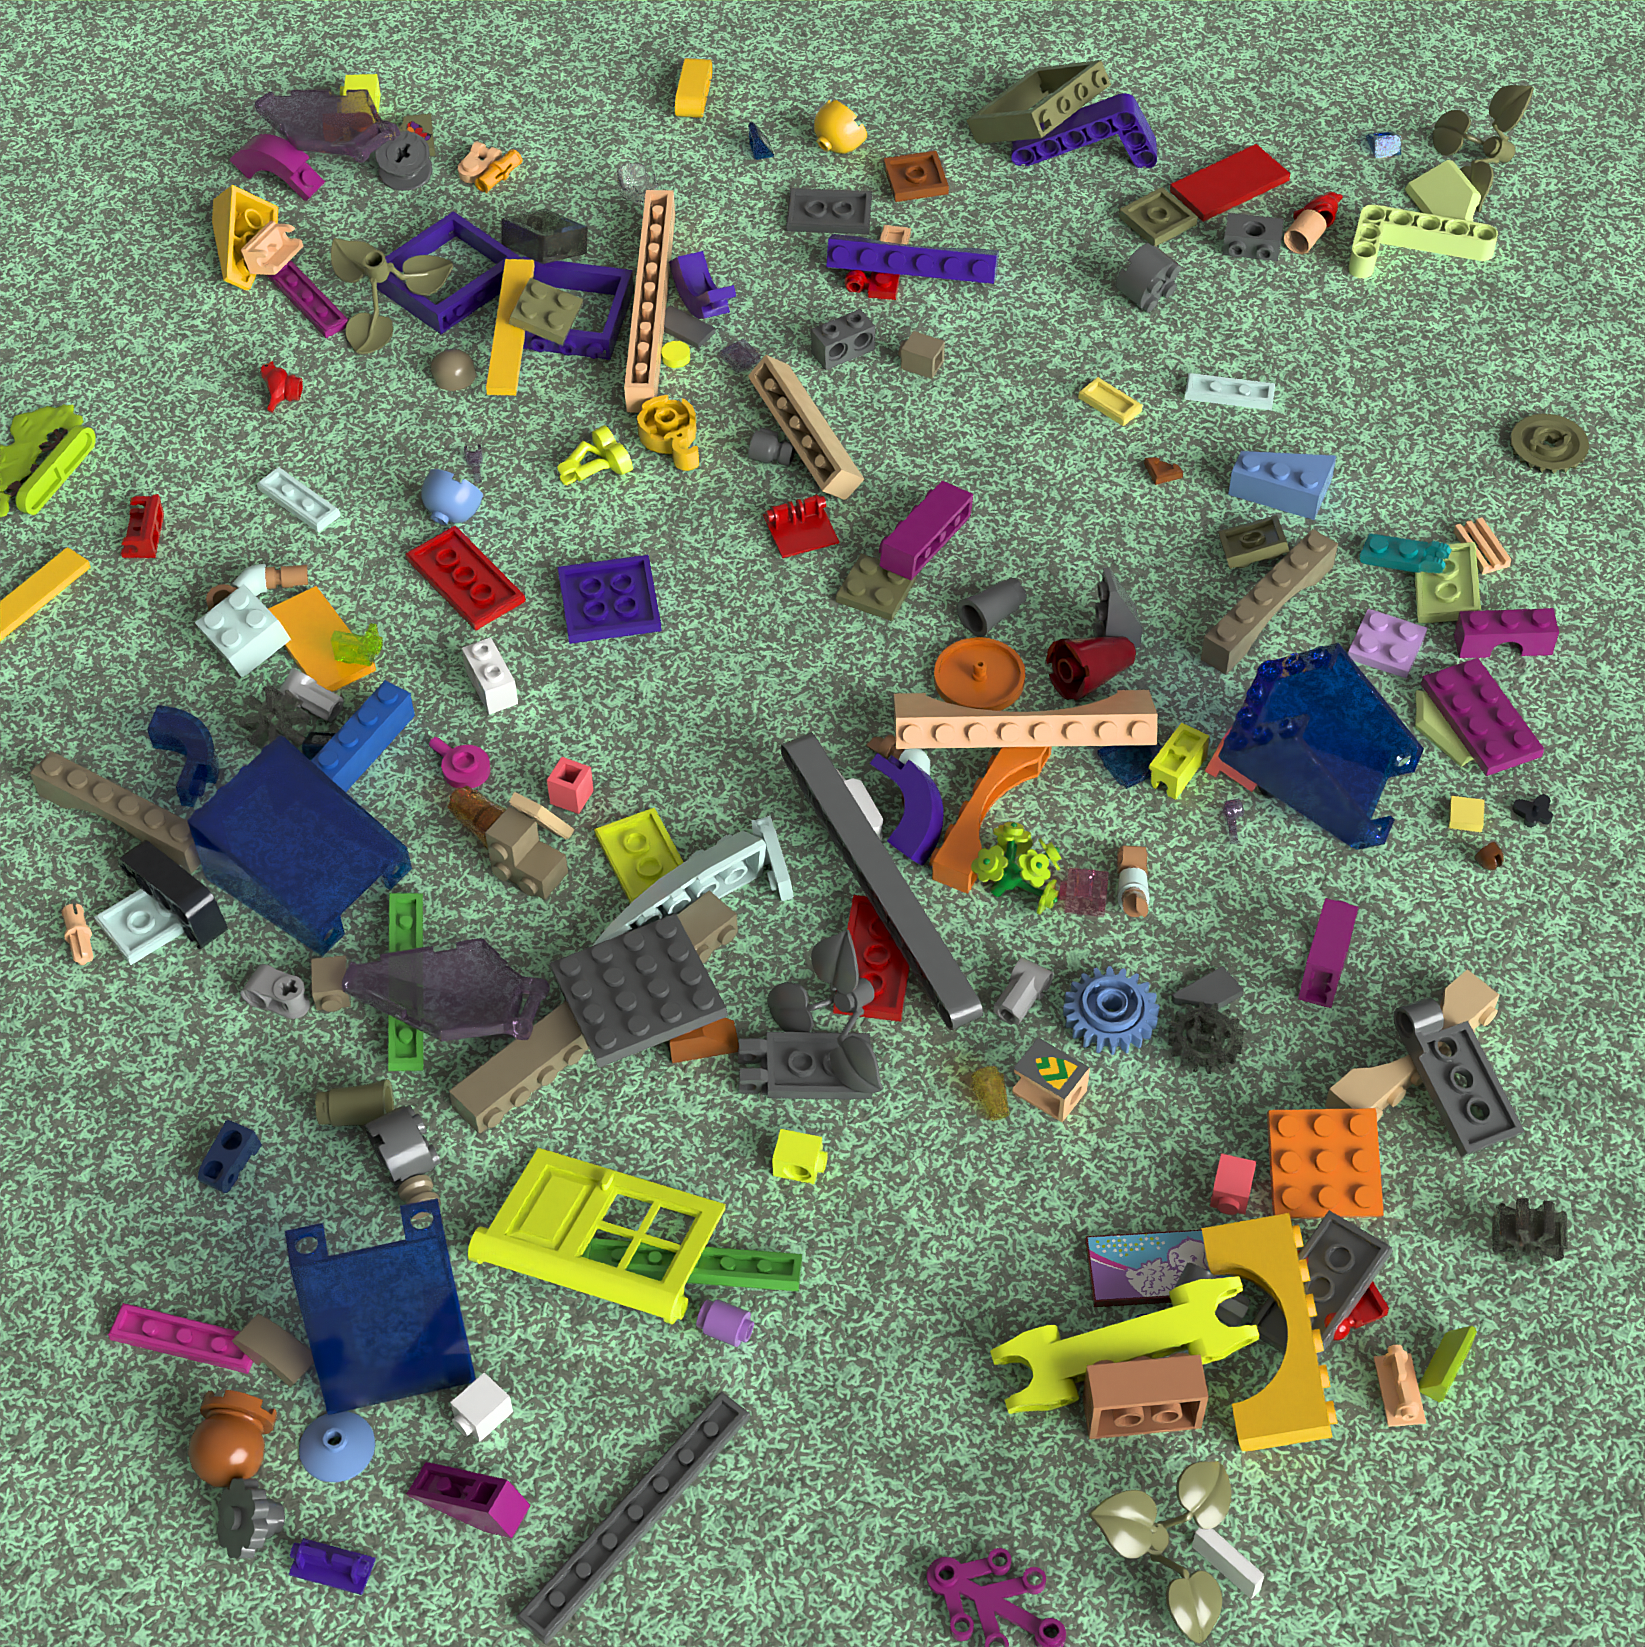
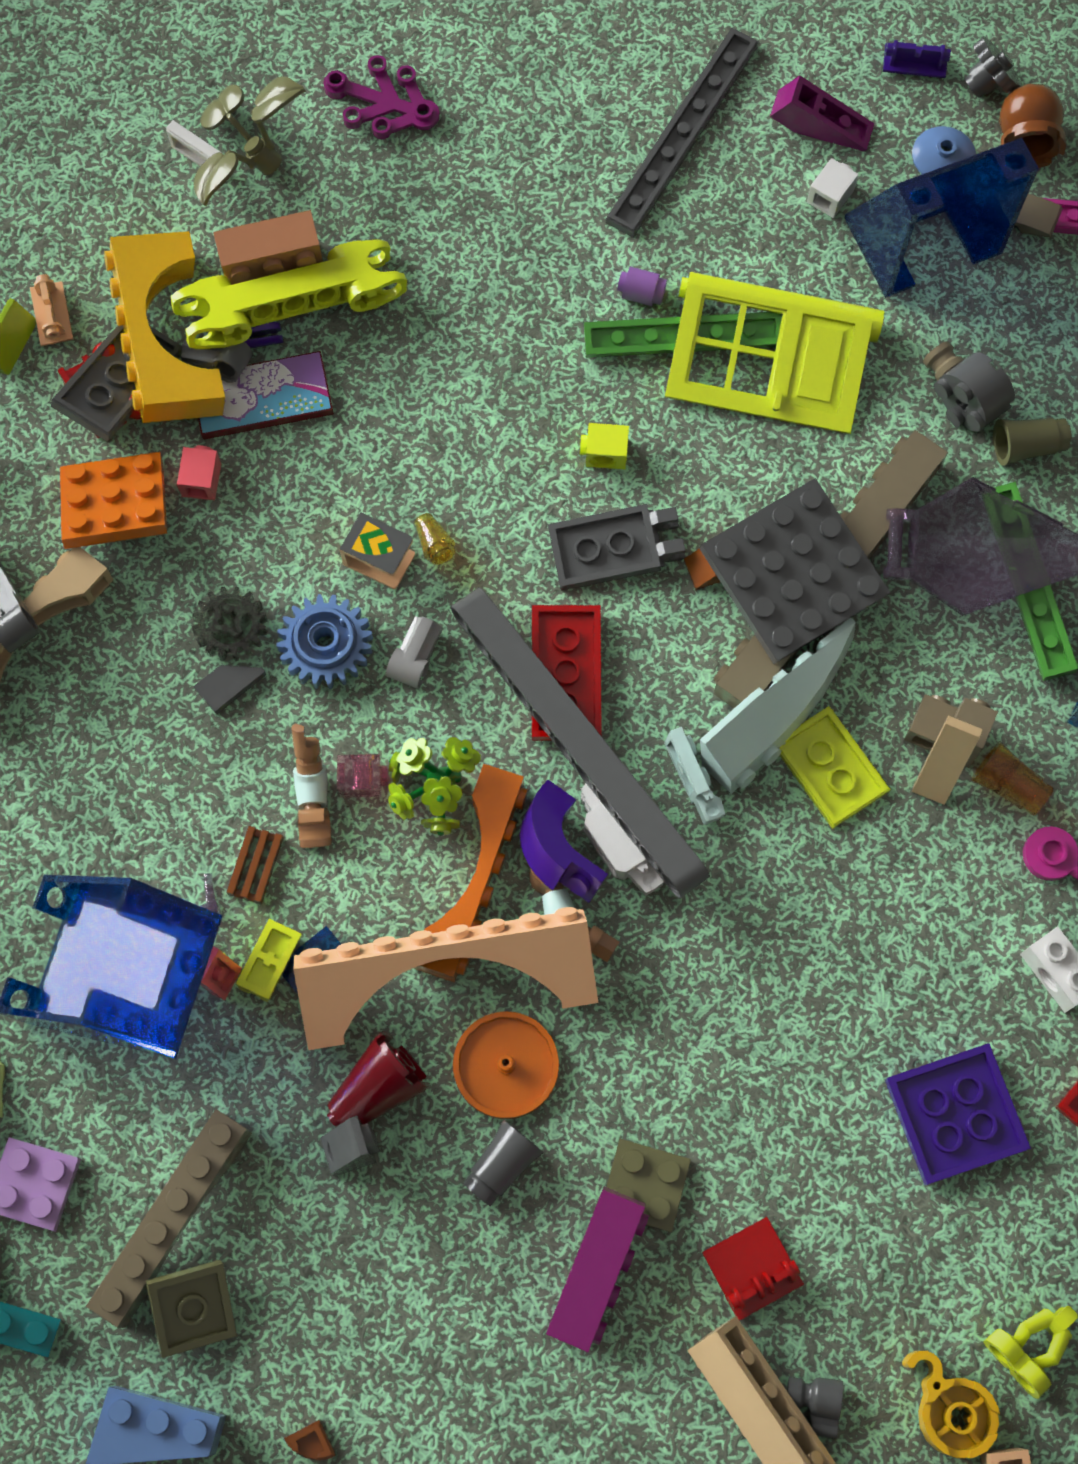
camera: 170 degrees right, 20 degrees up
(570, 785) = (929, 825): coral brick -> none
(836, 964) = (583, 595): dark grey plant -> none
(1197, 823) = (263, 836): none -> dark orange tile
(1328, 952) = (105, 720): magenta window -> none

